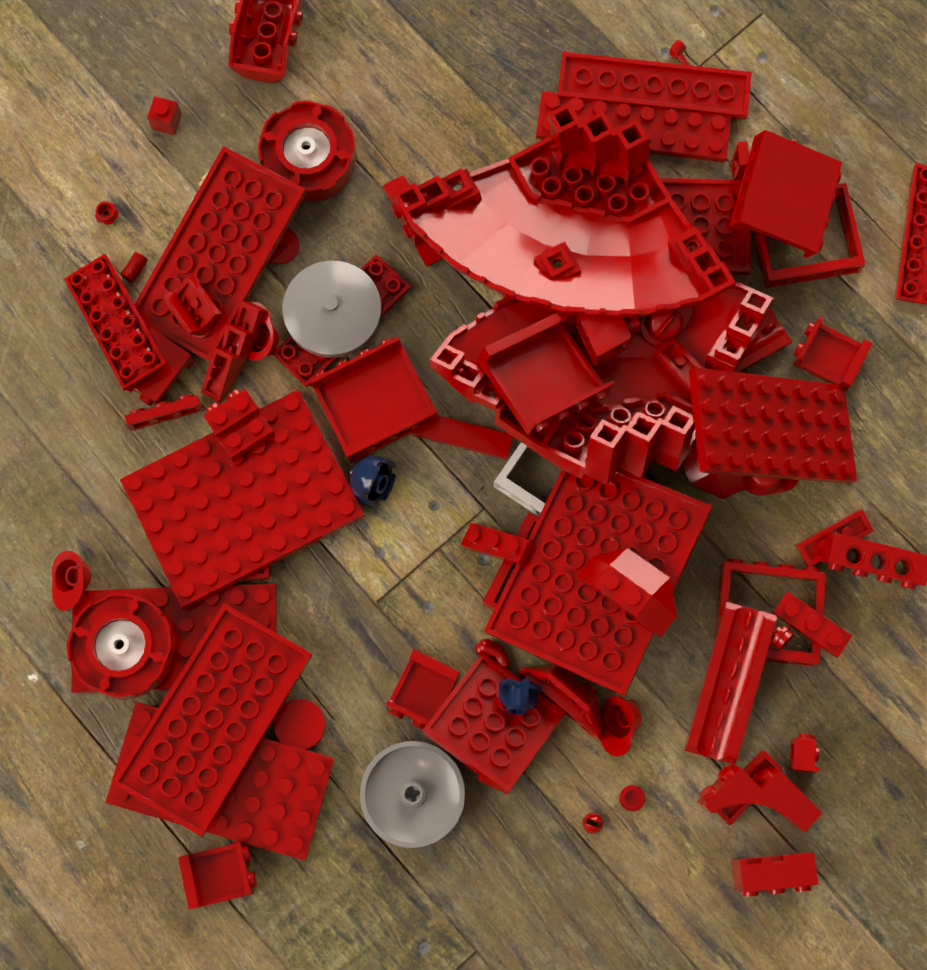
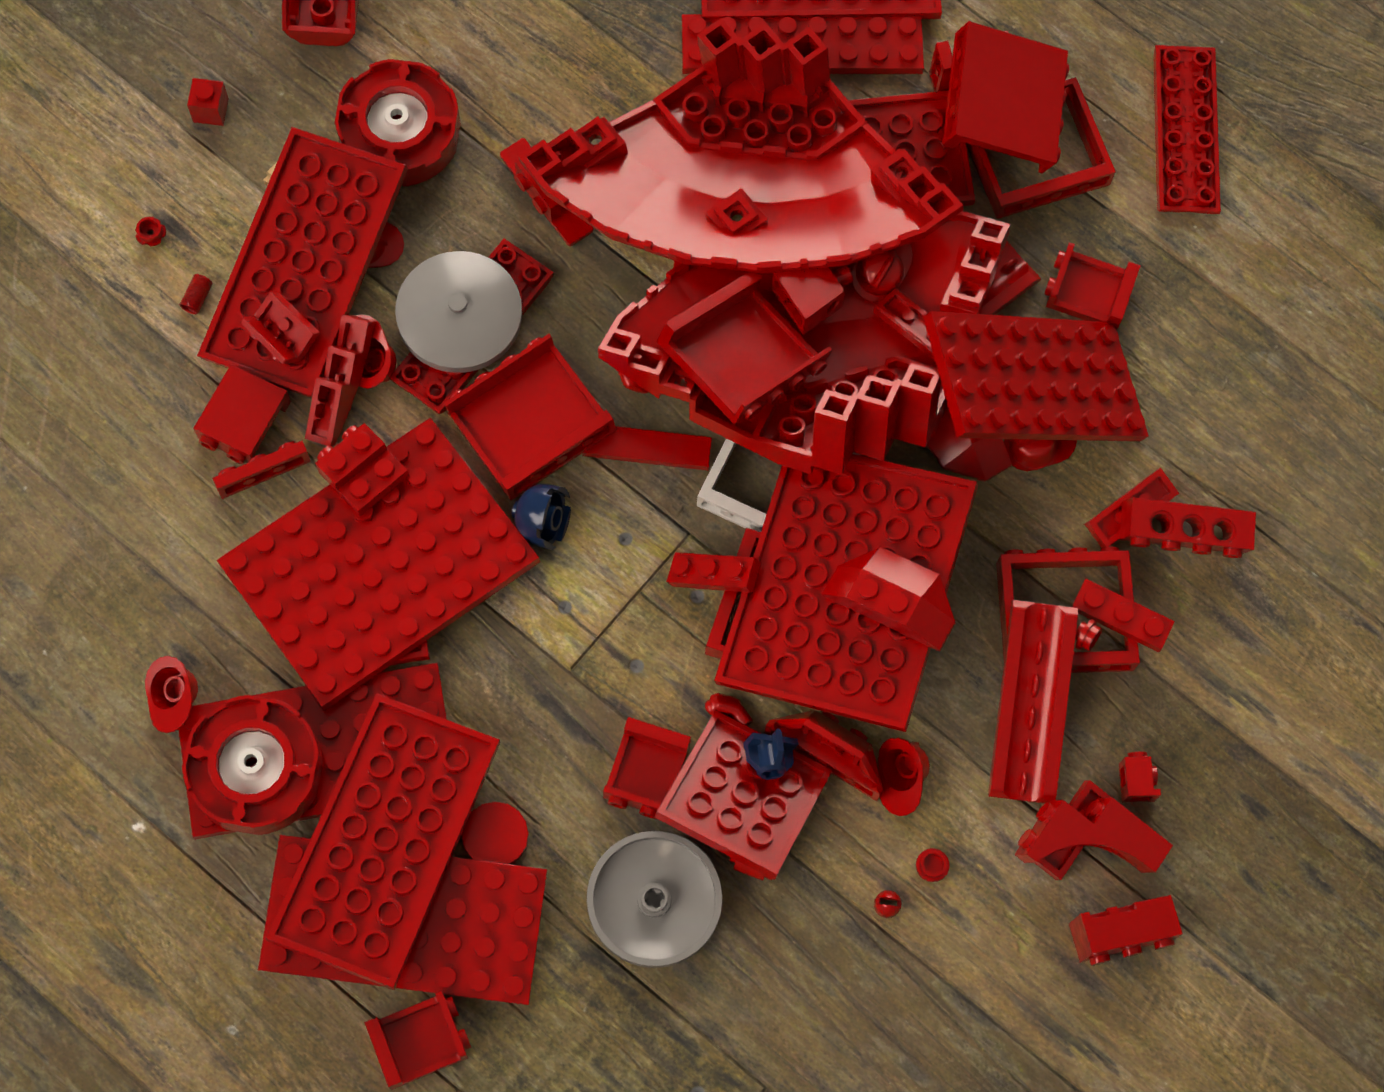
camera: 15 degrees left, 5 degrees down
(115, 322) = (183, 363): red plate -> none

